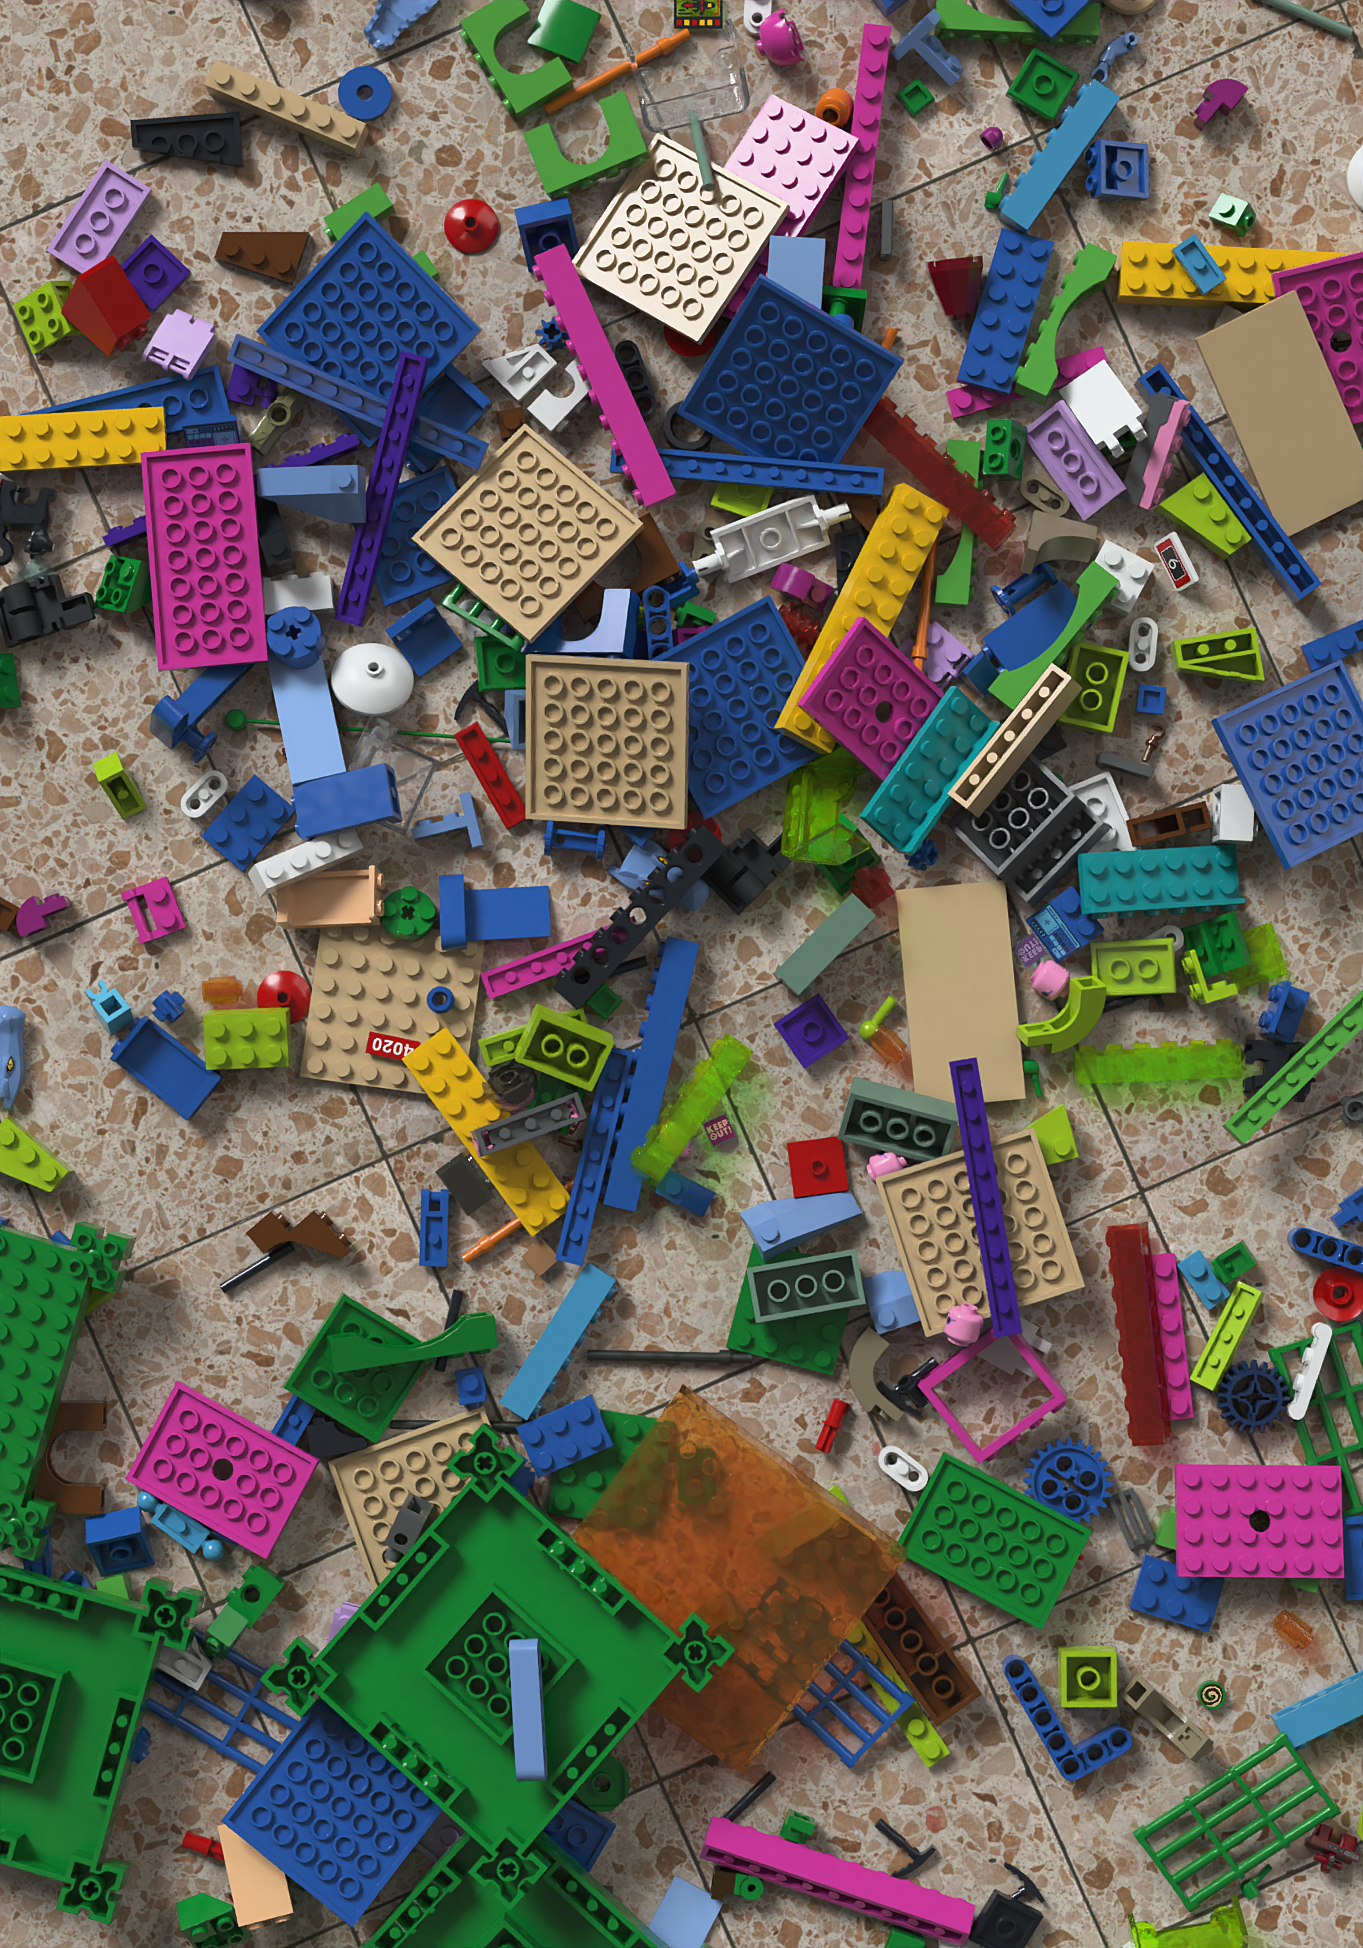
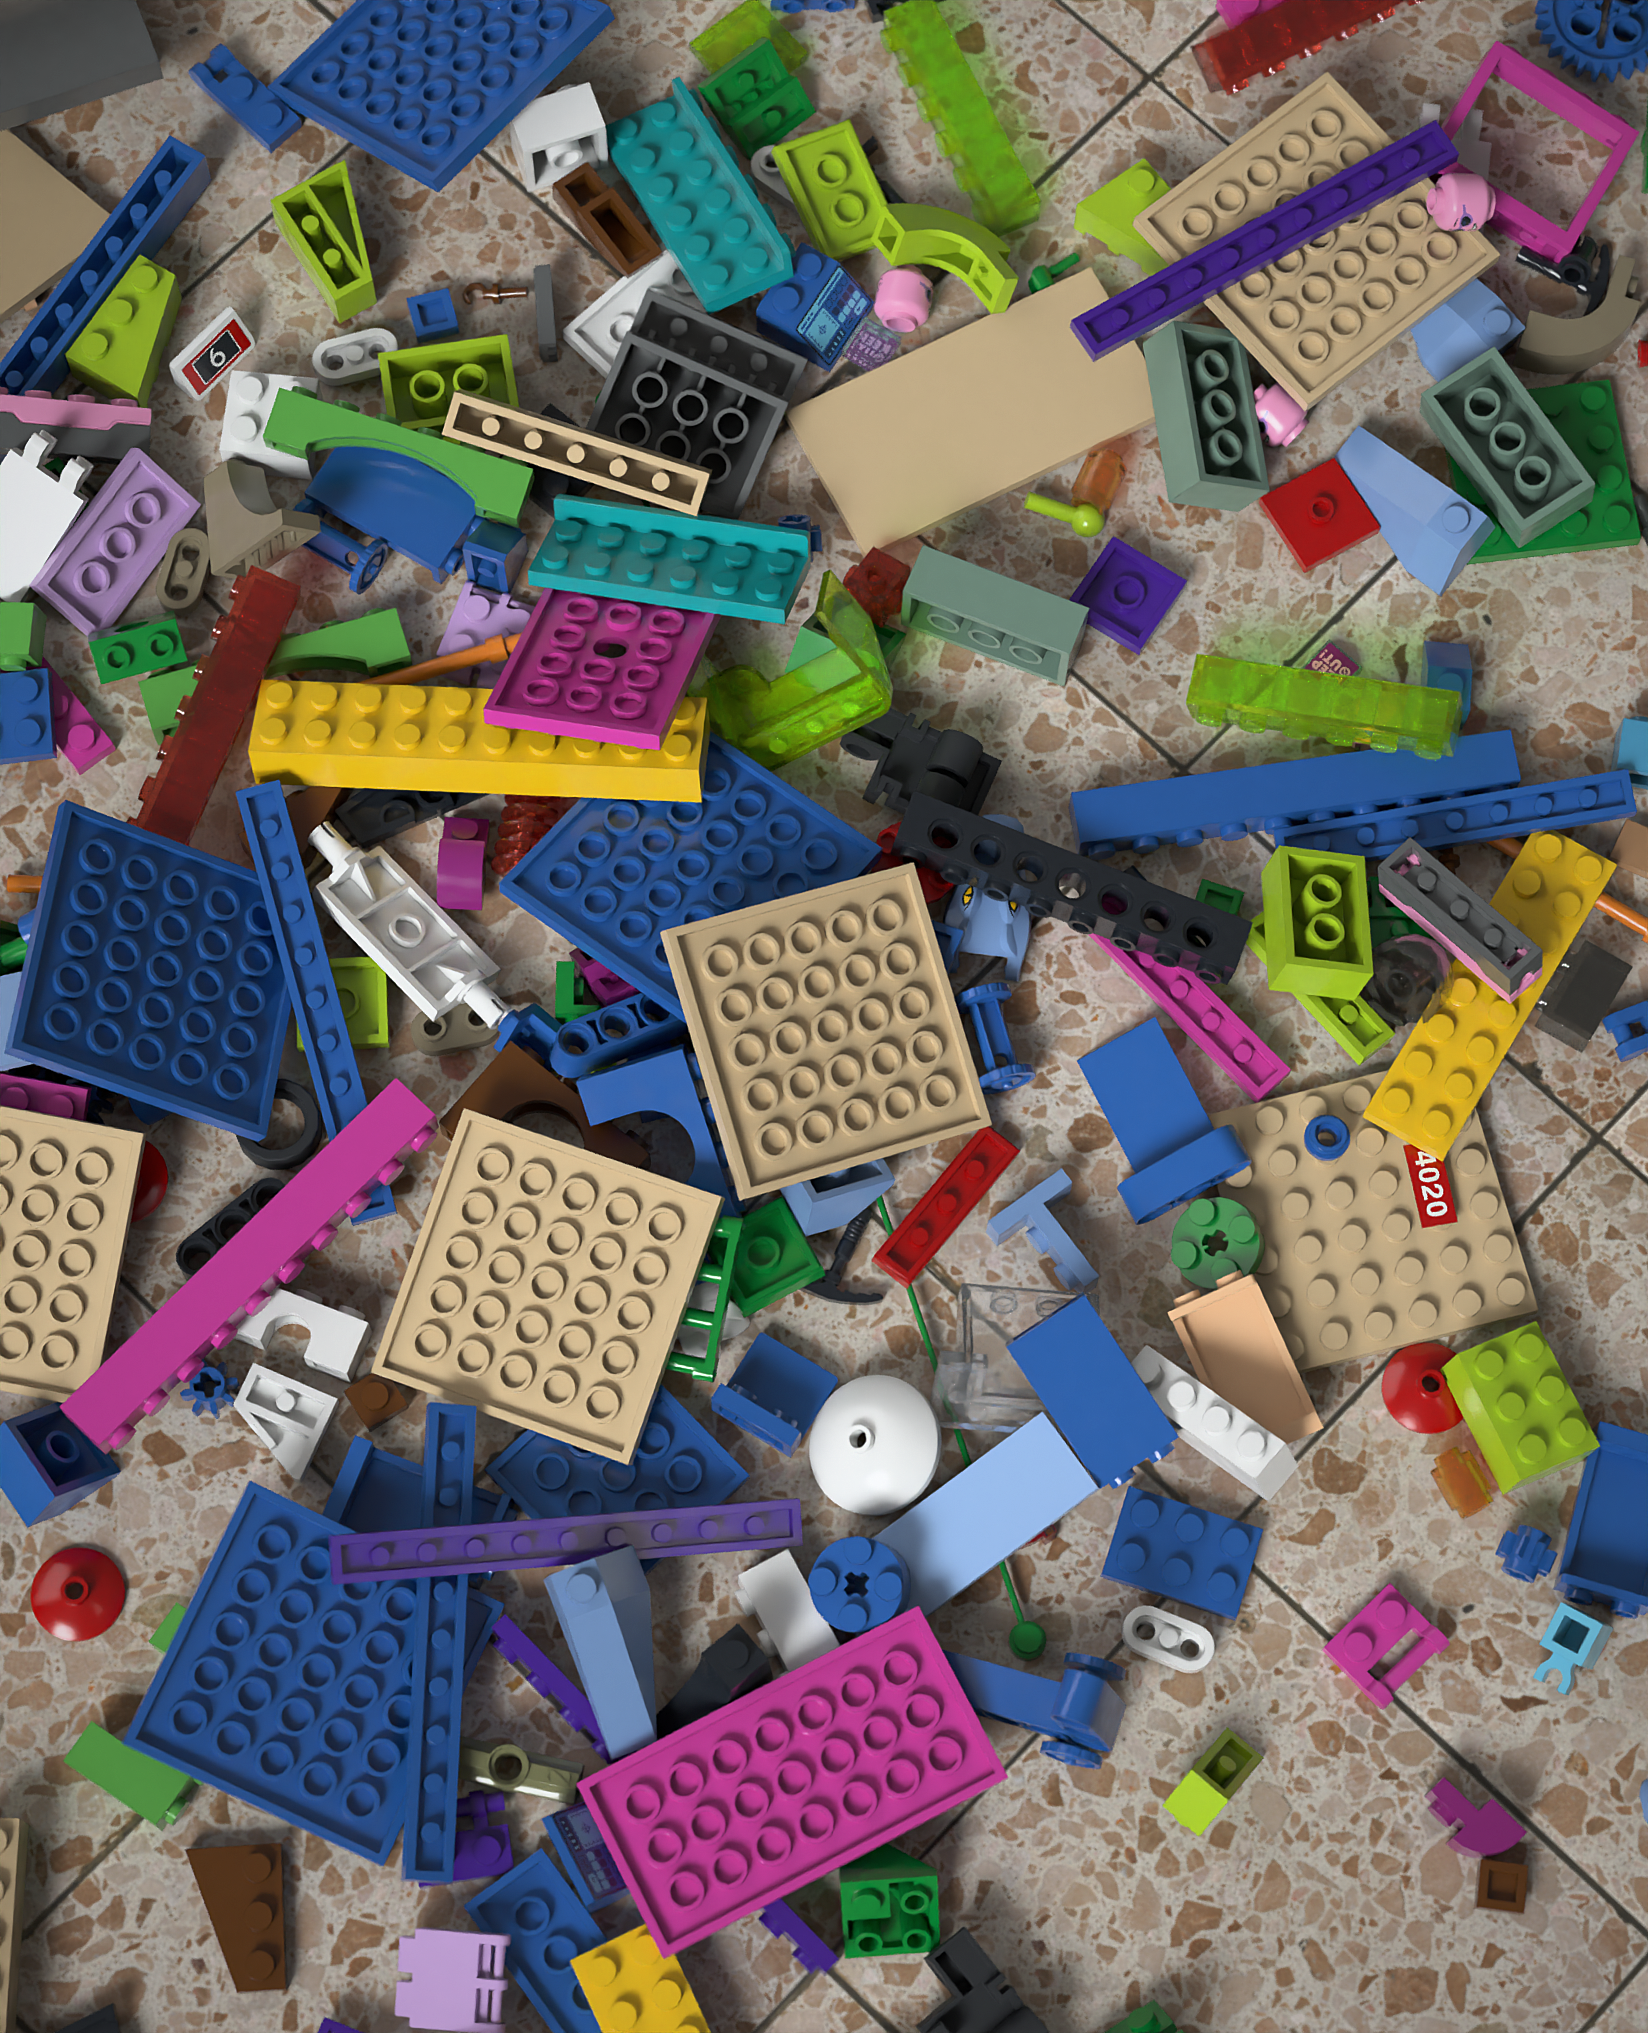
camera: 115 degrees left, 15 degrees down
(1199, 990) = (825, 87): lime bracket -> none

